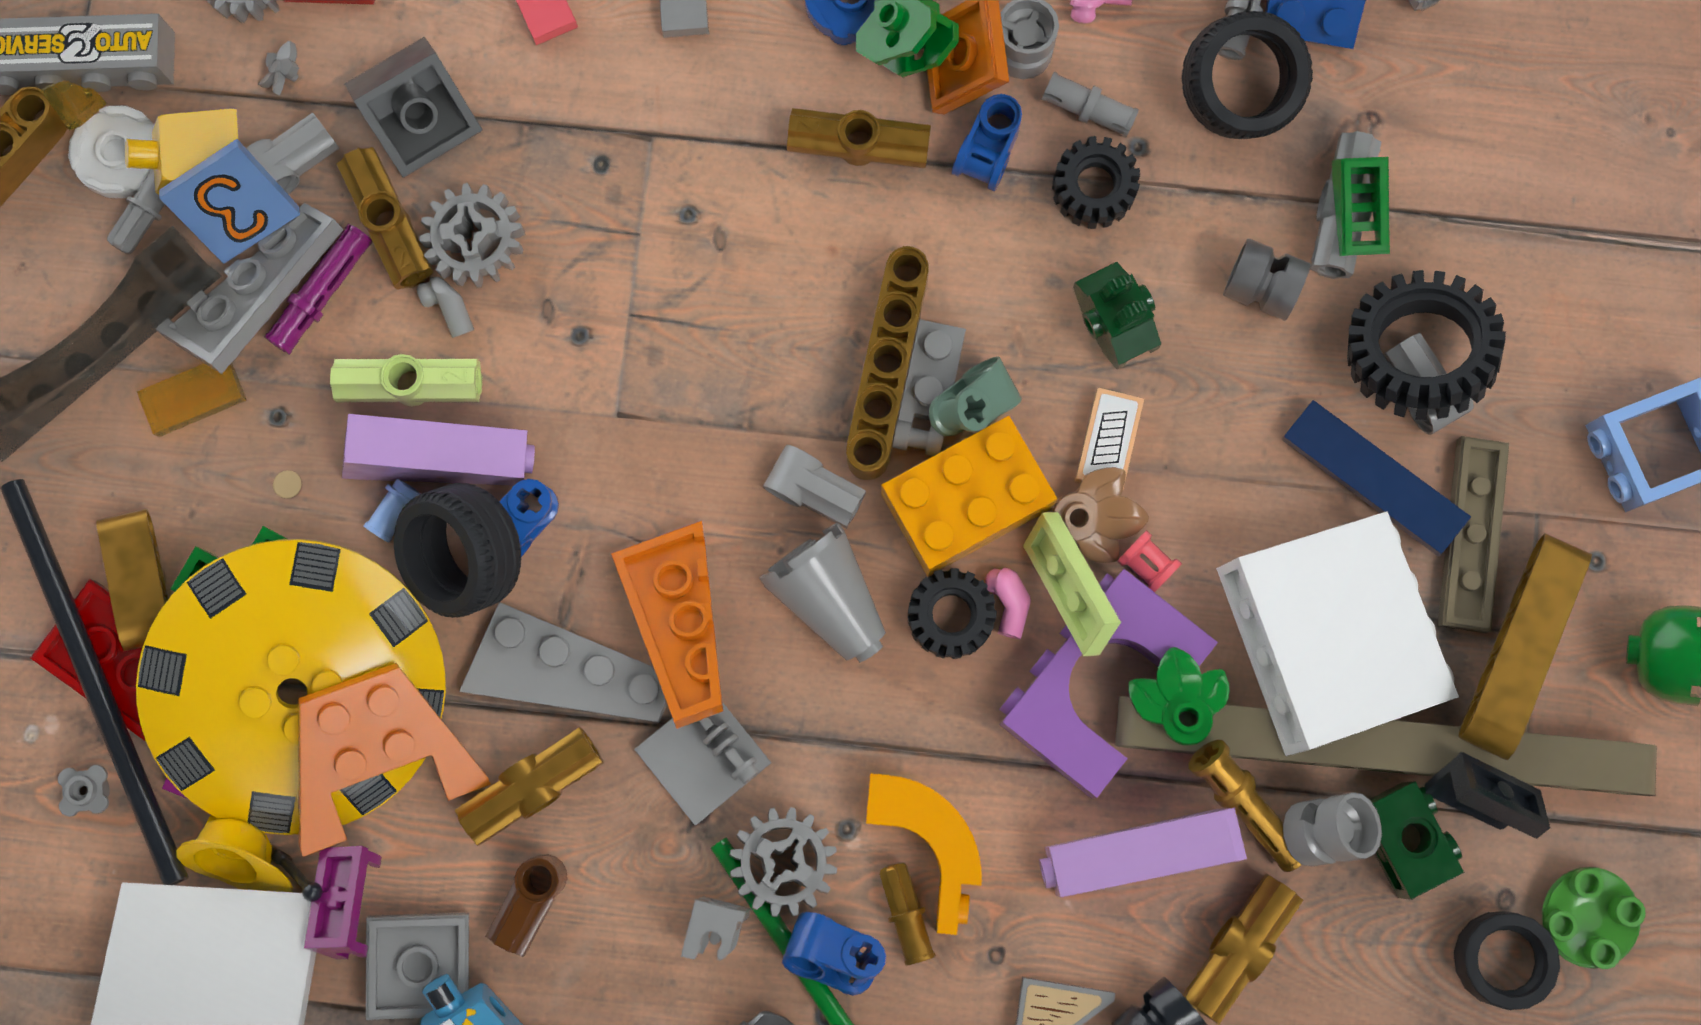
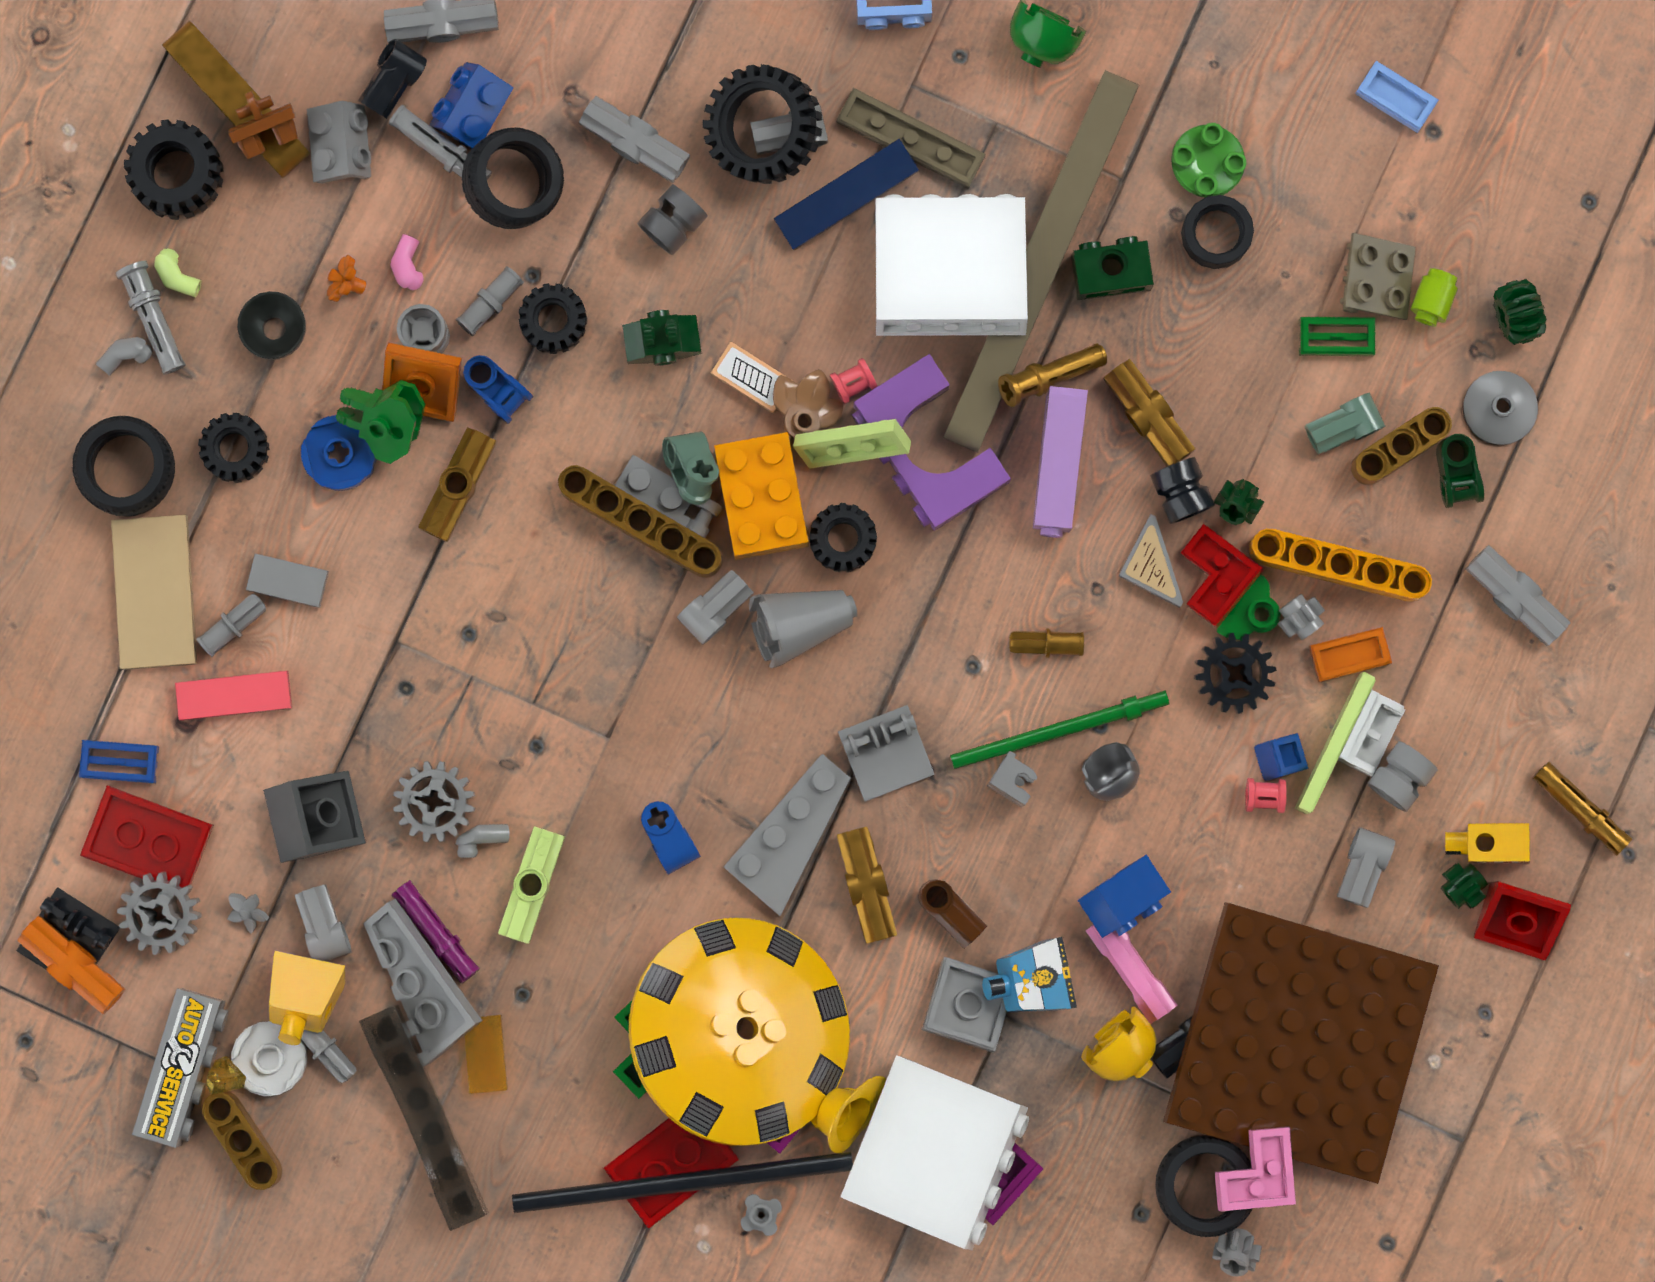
camera: 75 degrees left, 5 degrees up
(132, 574) = (617, 1129): pearl gold beam -> none
(229, 201) = (350, 974): medium blue tile -> none
(287, 484) = (577, 1002): tan sticker -> none
(310, 890) = (892, 1057): black hinge -> none
(336, 913) = (906, 1041): magenta hinge -> none
(362, 733) = (792, 989): orange wing -> none
(373, 196) = (373, 868): pearl gold piece -> none
(386, 514) = (626, 925): light blue pin -> none
(427, 562) = (675, 852): black tyre -> none
(434, 452) = (595, 880): lavender slope -> none
(674, 613) = (770, 738): orange wing -> none
(763, 848) = (969, 729): light grey gear -> none
(829, 952) = (1057, 704): blue piece -> none
(928, 814) = (996, 596): light orange arch -> none
(1015, 598) = (845, 488): bright pink arm -> none
(1180, 689) = (954, 394): green plate -> none
(1332, 829) = (1087, 321): light grey wheel -> none
(1378, 187) = (639, 144): green slope -> none
(1490, 795) = (1100, 202): black panel -> none
(1525, 647) = (1004, 136): pearl gold beam -> none

